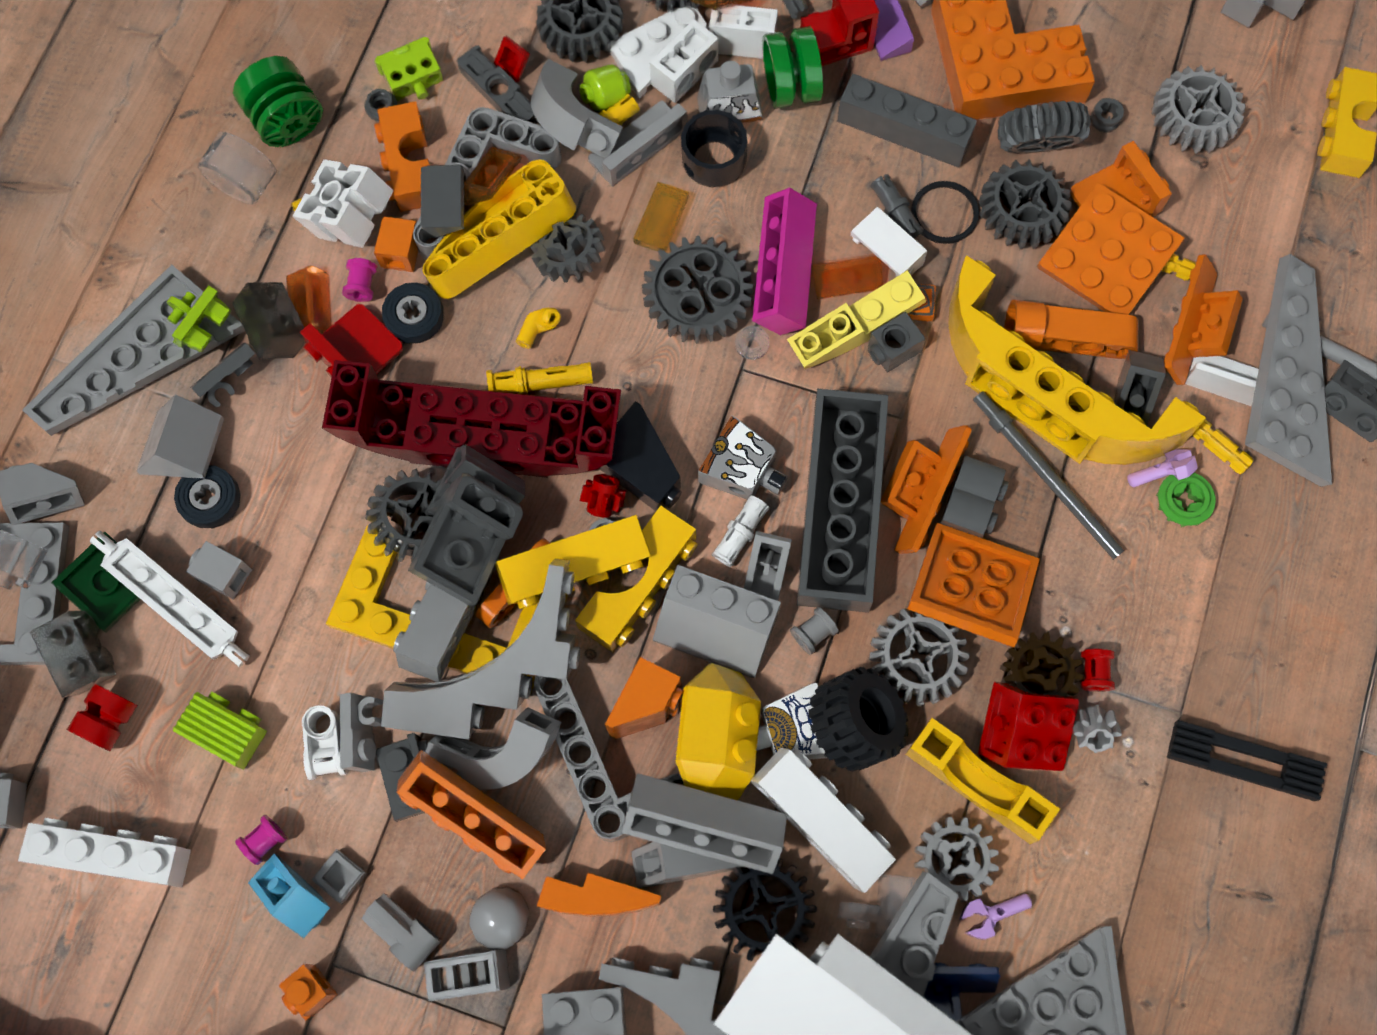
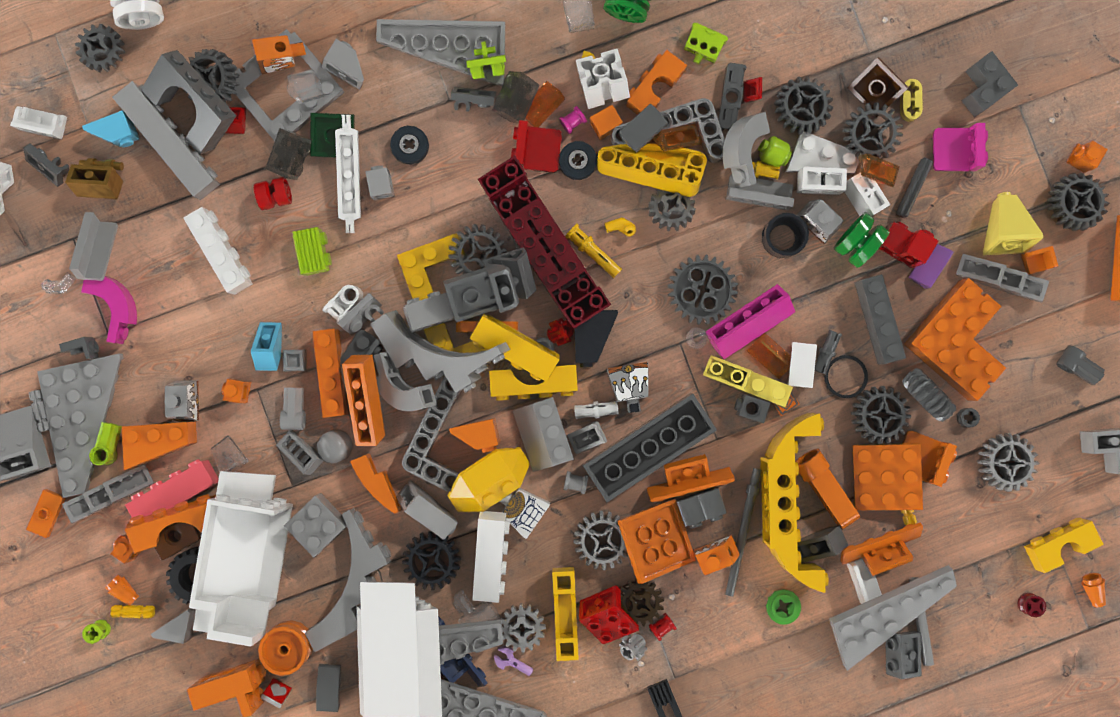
camera: 50 degrees right, 15 degrees up
(181, 440) = (423, 109): light grey slope -> none
(261, 840) = (280, 313): dark pink bush -> none
(377, 98) = (674, 39): dark grey plate -> none
(398, 836) = (331, 387): none -> orange arch
(661, 217) = (727, 238): clear yellow tile -> none
(705, 823) = (442, 509): light grey brick -> none
(858, 719) = (547, 538): black tyre -> none
(1051, 526) = (716, 555): none -> orange torso
(1177, 463) = (797, 591): lavender bar -> none
(1223, 447) = (825, 606): yellow axle -> none

